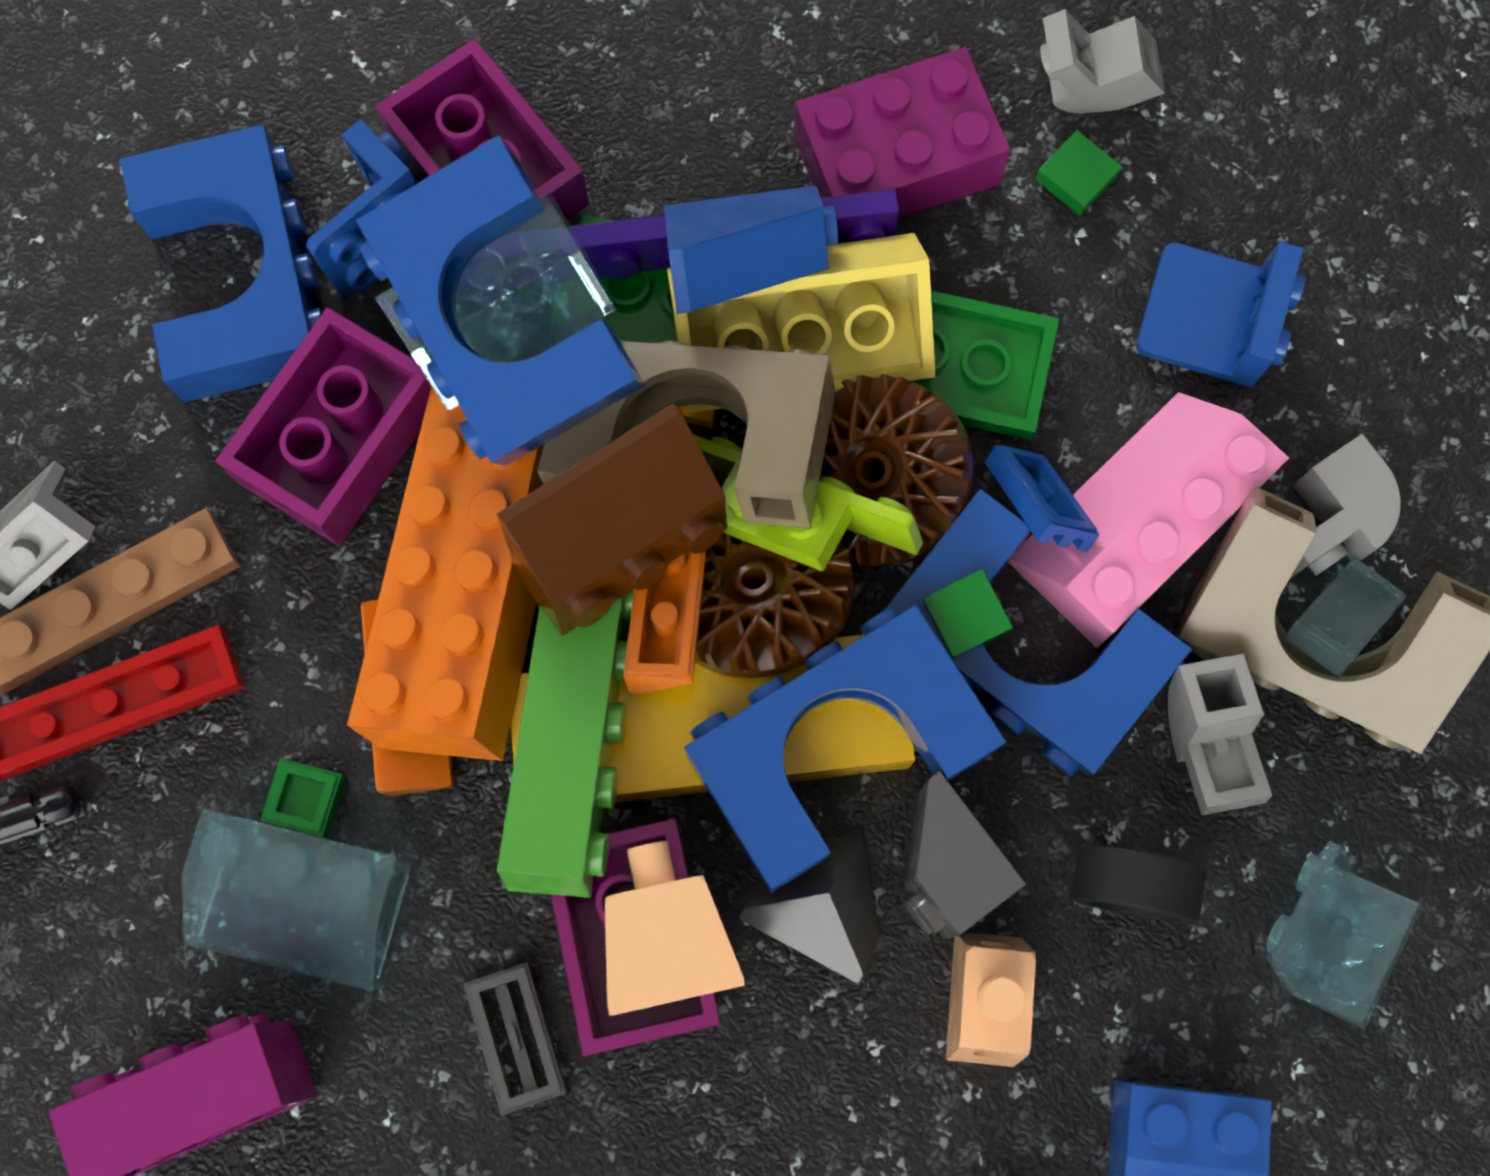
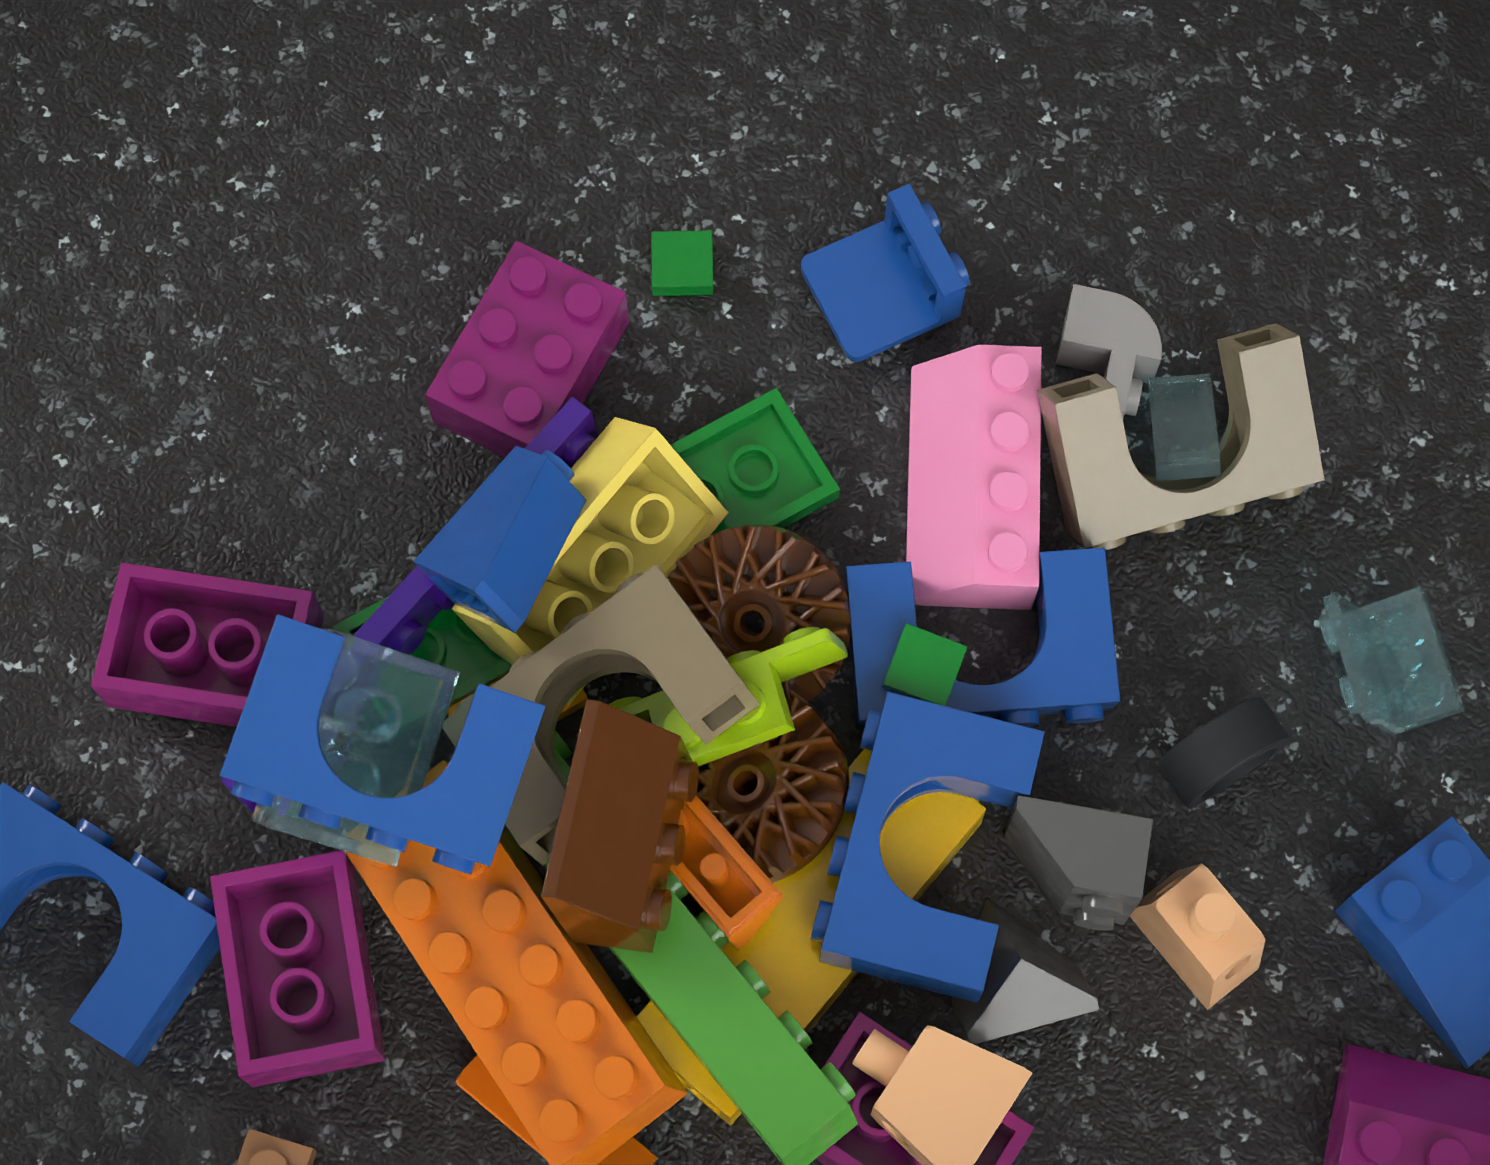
camera: 45 degrees left, 5 degrees down
(338, 241) = (152, 733): blue bracket -> none
(1041, 498) = (892, 533): blue tile -> none
(1100, 68) = (626, 168): light grey brick -> none
(1211, 729) = (1165, 592): light grey brick -> none

